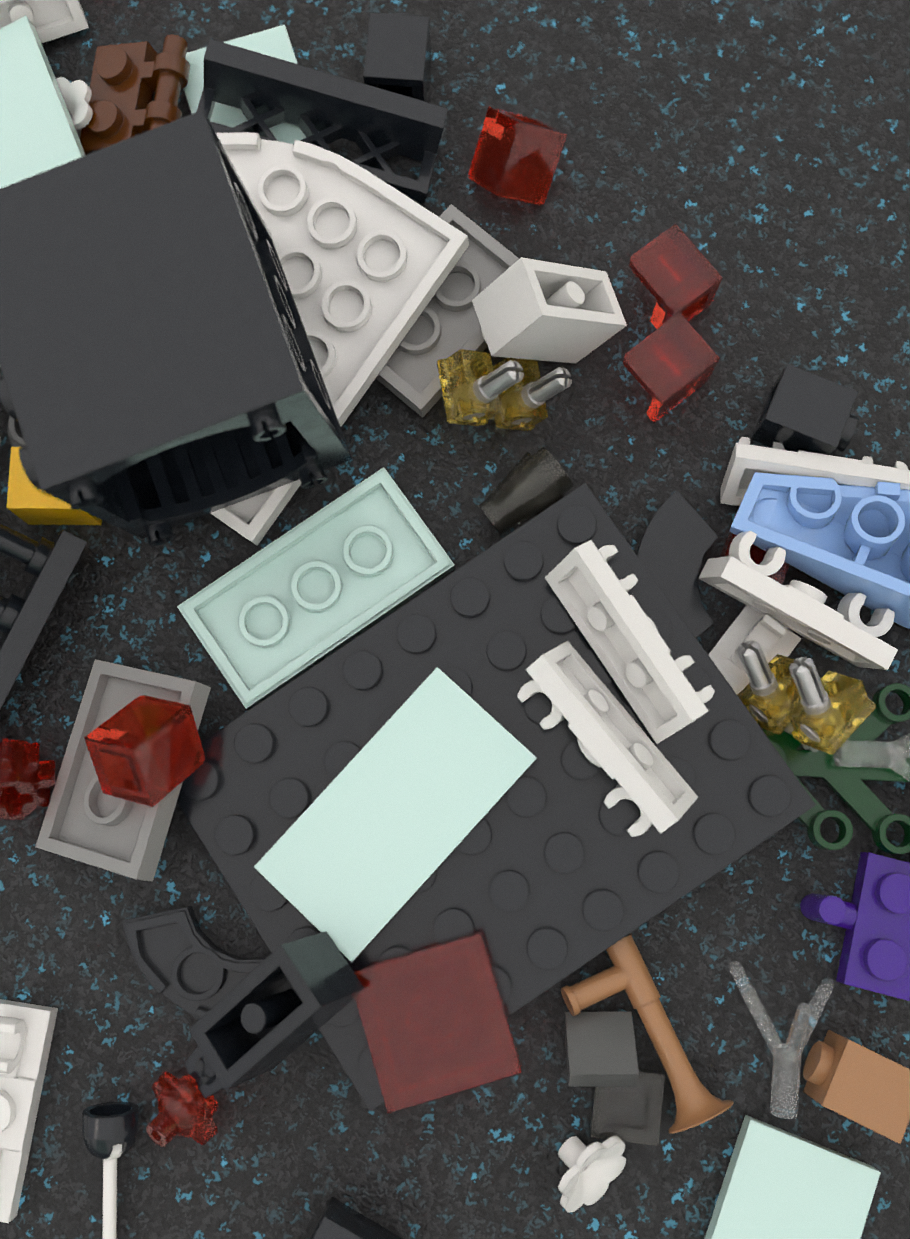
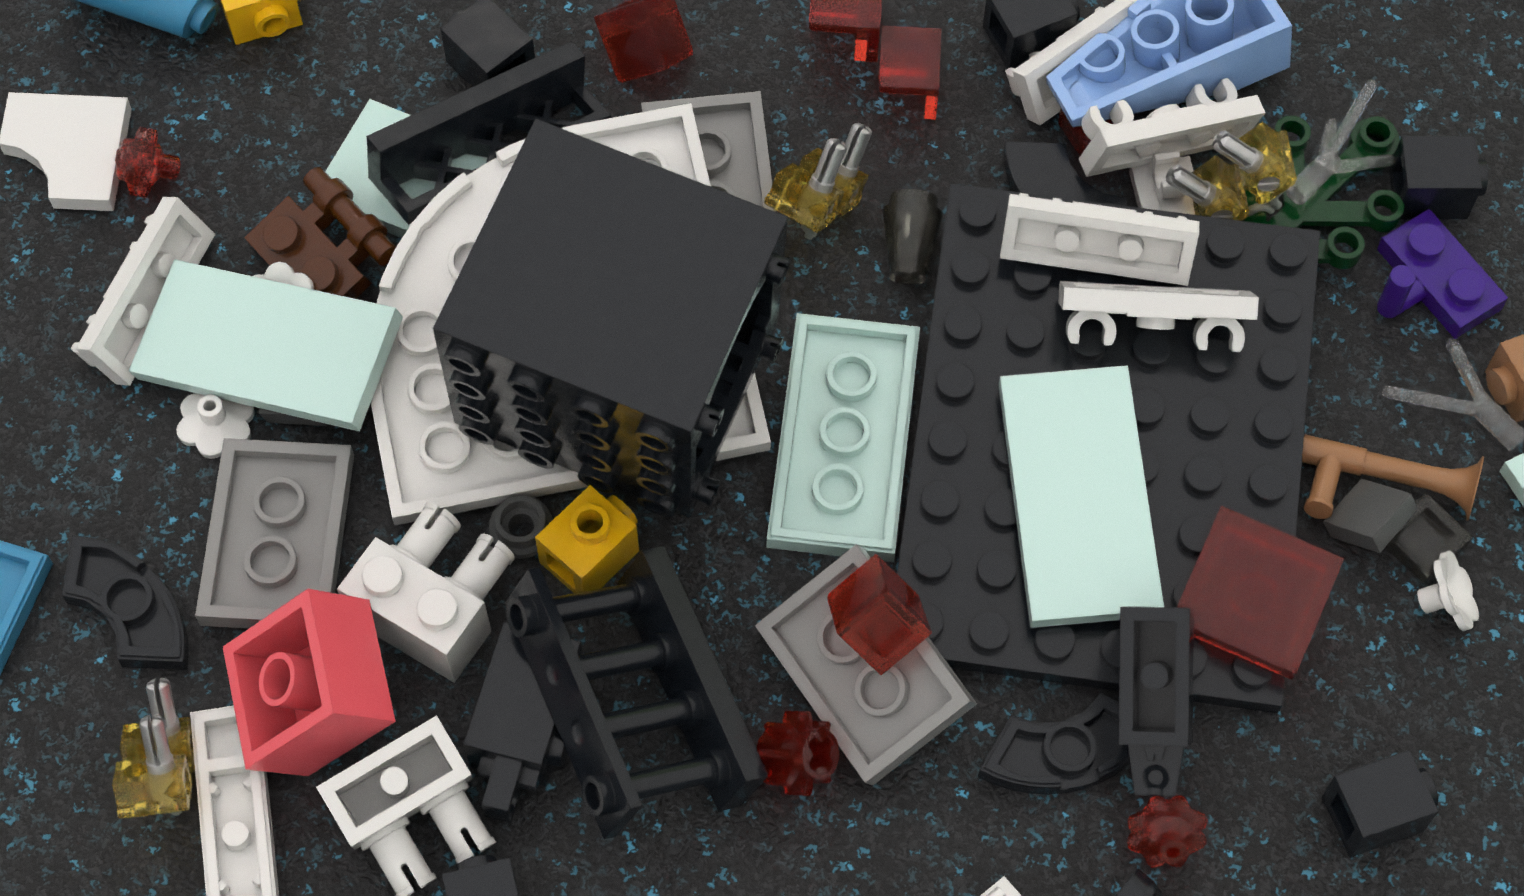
camera: 50 degrees left, 15 degrees down
(548, 311) = (800, 103): white brick -> none

